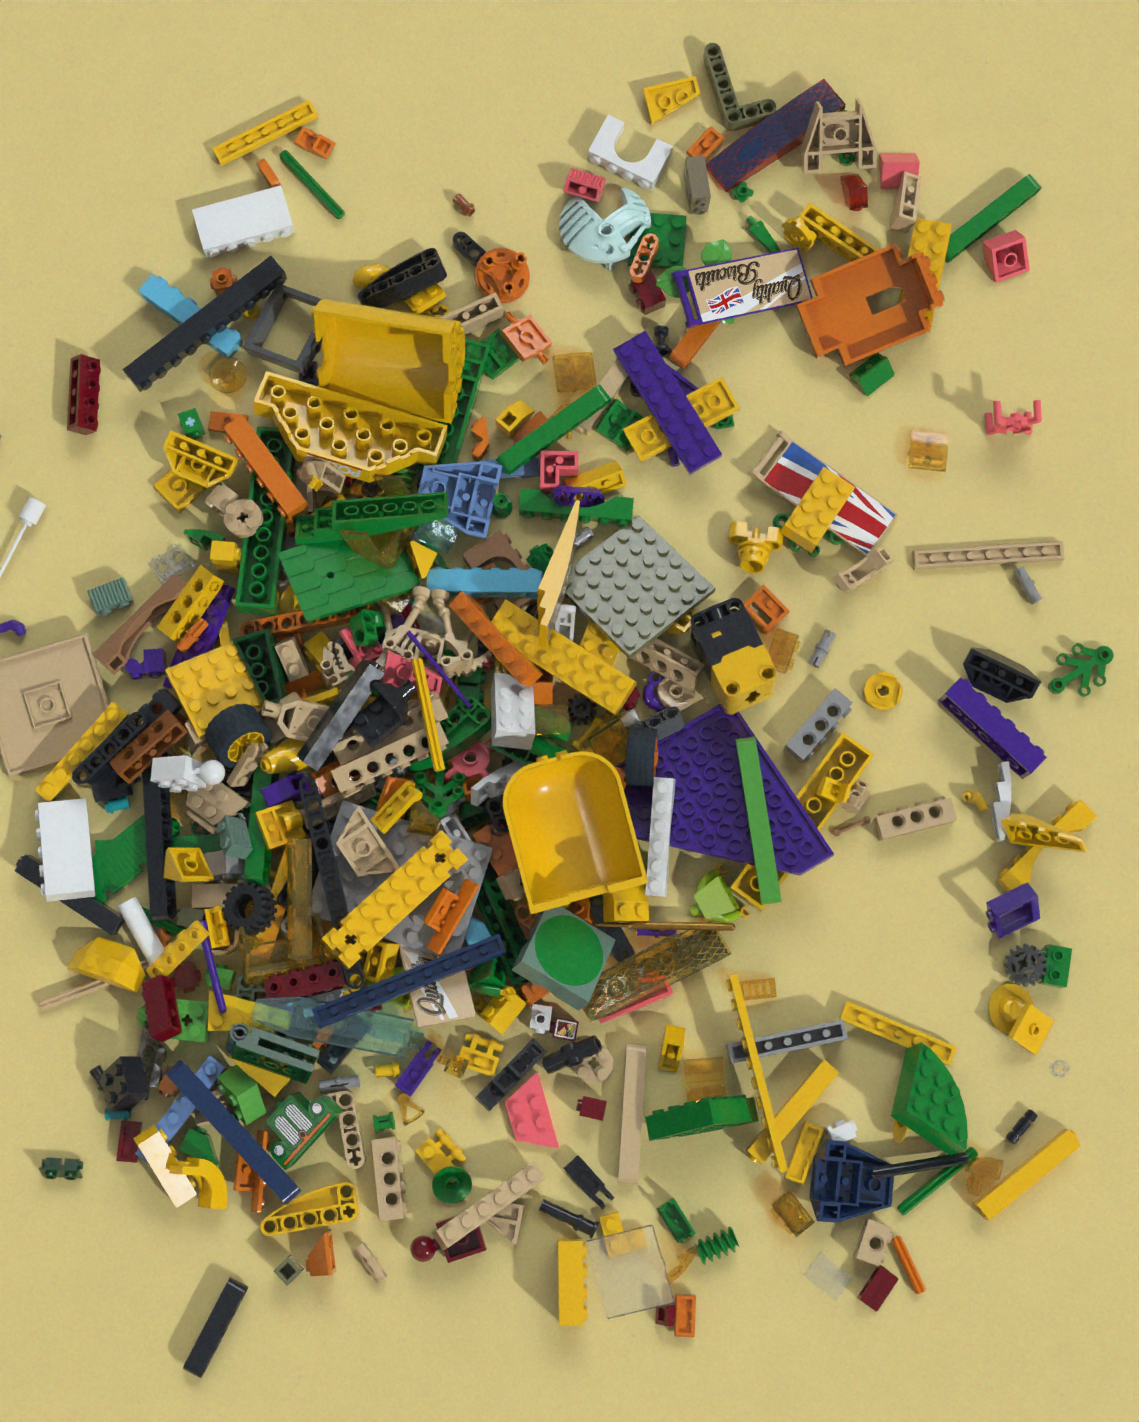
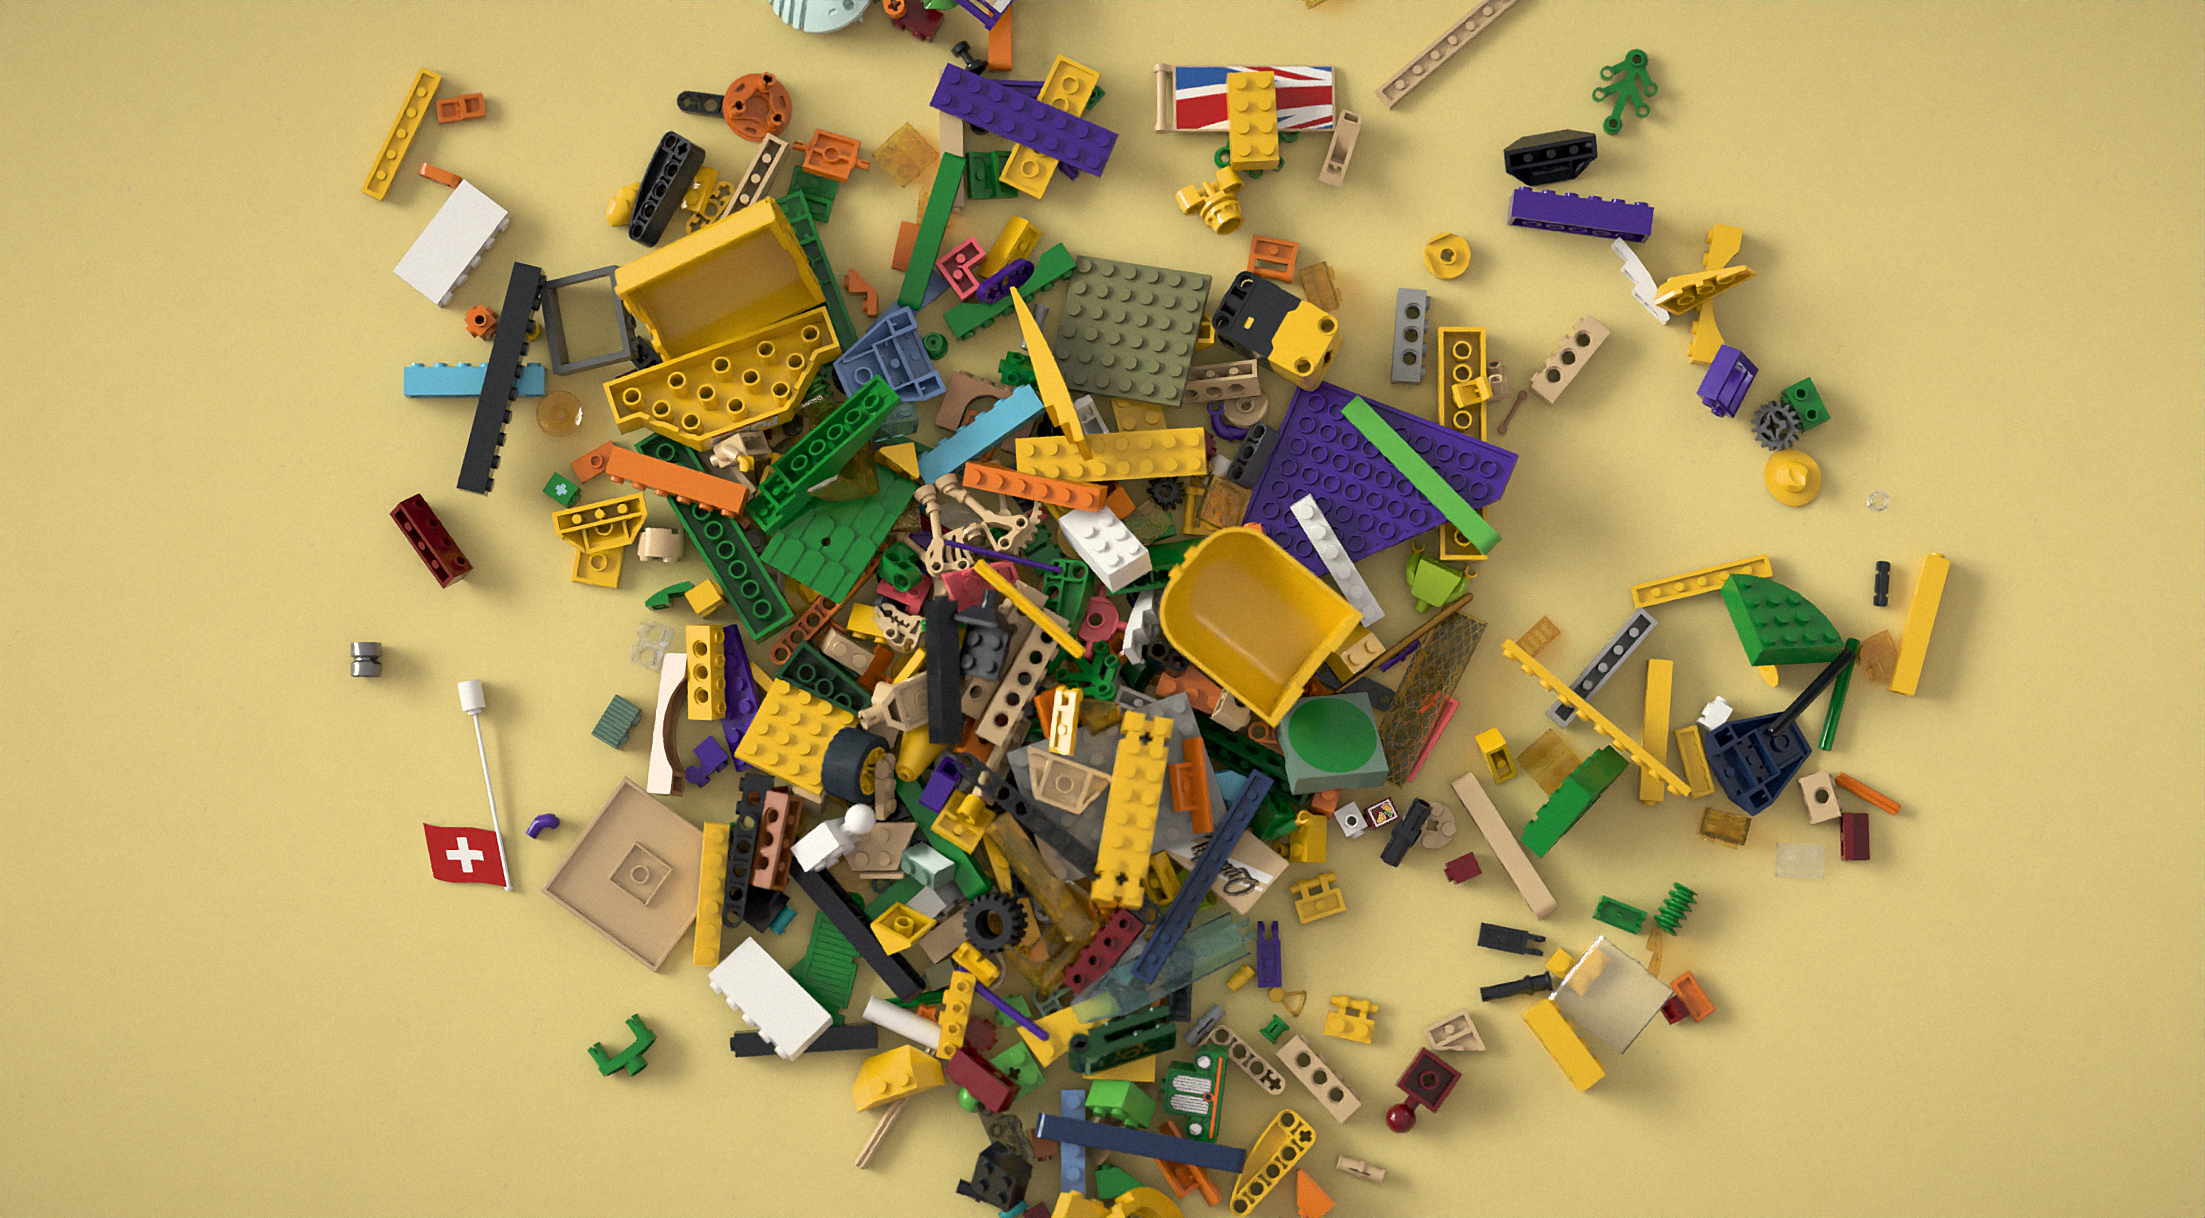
camera: 30 degrees left, 5 degrees up
(192, 635) = (731, 701): orange axle -> none
(236, 510) = (680, 548): tan plate -> none
(312, 185) = (491, 153): green axle -> none
(448, 1191) = (1389, 1045): green dish -> none
(454, 1064) = (1301, 924): clear yellow plate -> none
(466, 207) = (663, 62): dark orange pin -> none
(488, 1206) = (1434, 1032): tan arch -> none
(511, 1074) = (1361, 895): black slope -> none
(513, 417) = (880, 246): yellow slope -> none
(531, 1115) = (1408, 918): coral wing -> none
(641, 756) = (1263, 495): black wheel -> none
(822, 648) = (1357, 256): light grey pin -> none
(976, 798) = (1613, 295): yellow arm -> none
(1027, 585) = (1512, 43): light grey pin -> none
(1031, 1028) = (1824, 483): yellow plate -> none

